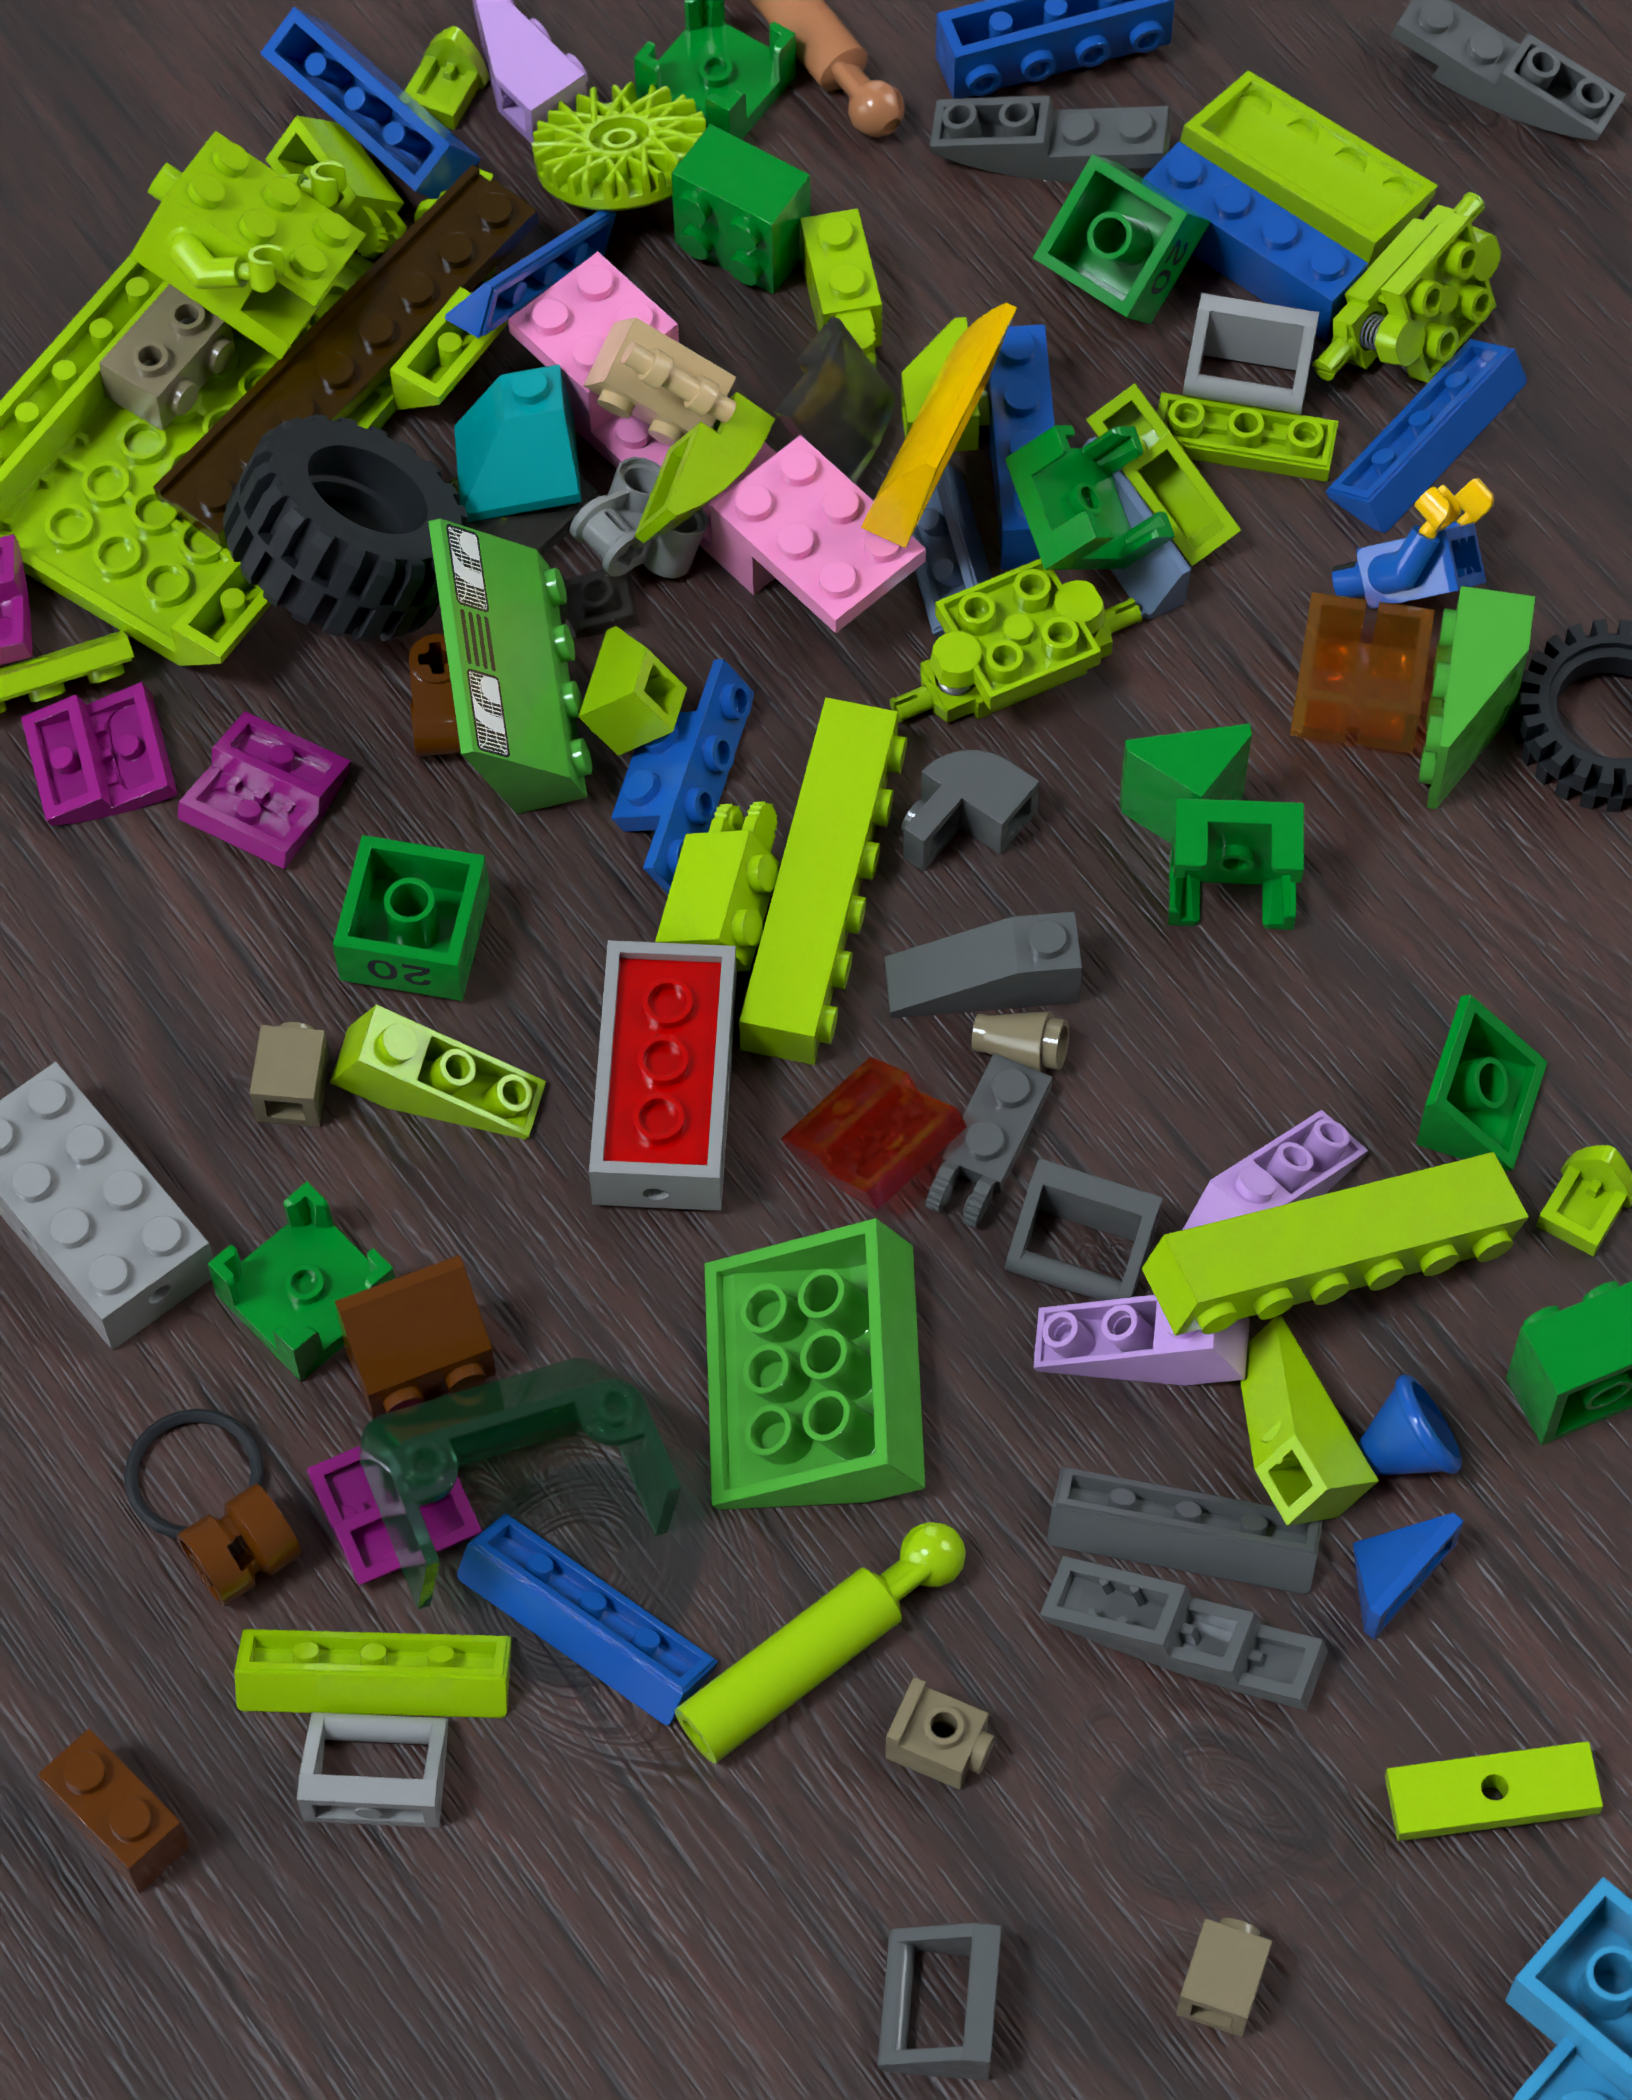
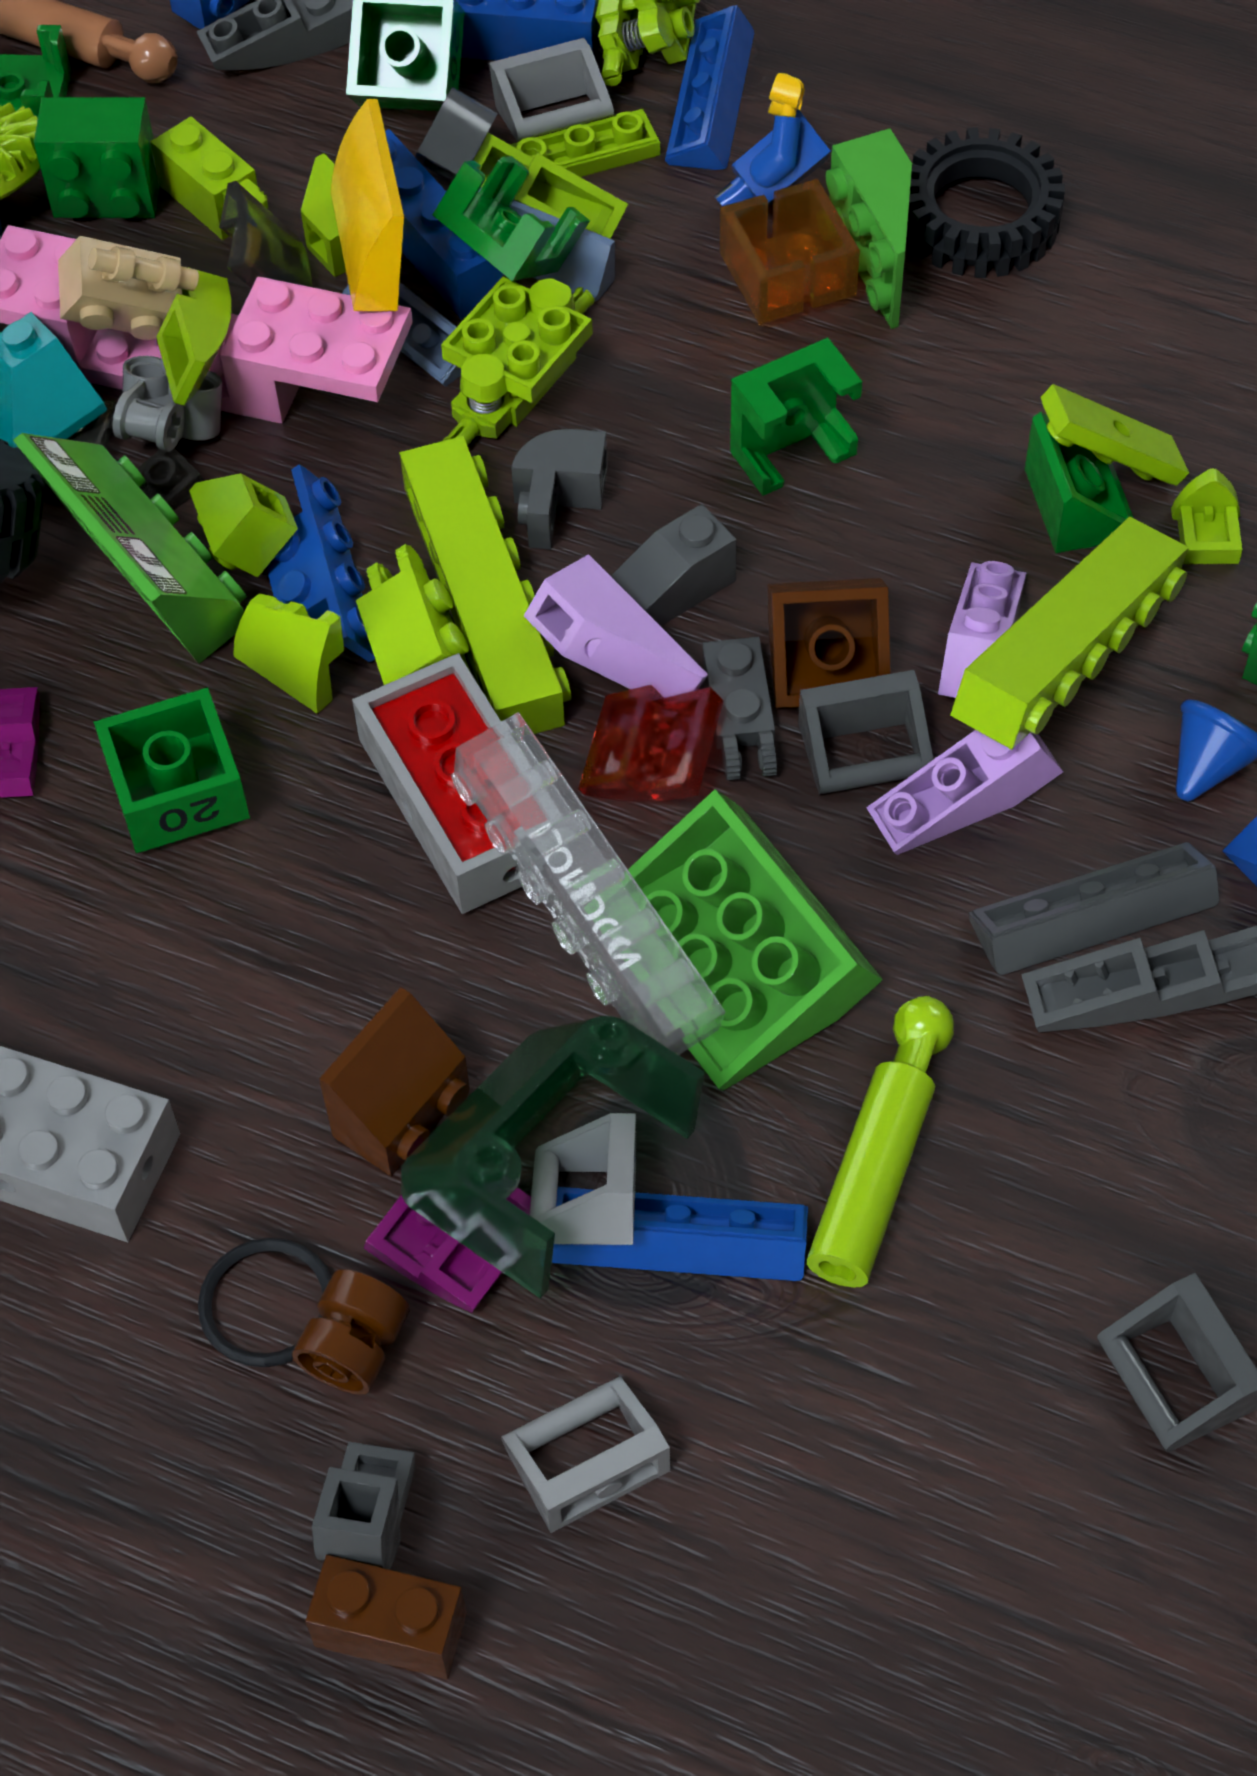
camera: 30 degrees left, 5 degrees down
(147, 1709) = (364, 1505): none -> dark grey brick
(290, 1074) = (145, 942): dark tan brick -> none
(293, 1280) = (261, 1099): green panel -> none
(373, 1673) = (529, 1376): lime slope -> none
(432, 697) = (85, 604): reddish brown piece -> none
(434, 1076) = (264, 882): lime slope -> none
(527, 1566) = (600, 1215): none -> light grey tile
(596, 849) = (290, 648): none -> lime slope
(690, 1251) = (584, 886): none -> clear brick
(894, 992) = (609, 632): none -> lavender slope
(943, 1759) = (1017, 1174): dark tan brick -> none
(1026, 1038) = (720, 618): dark tan cone -> none
(1105, 366) = (455, 134): none -> dark grey brick
(1114, 1112) = (826, 634): none -> reddish brown slope
(1182, 766) = (701, 375): green slope -> none
(1297, 1433) = (1131, 783): lime slope -> none
(1539, 1057) = (1112, 436): none -> lime tile

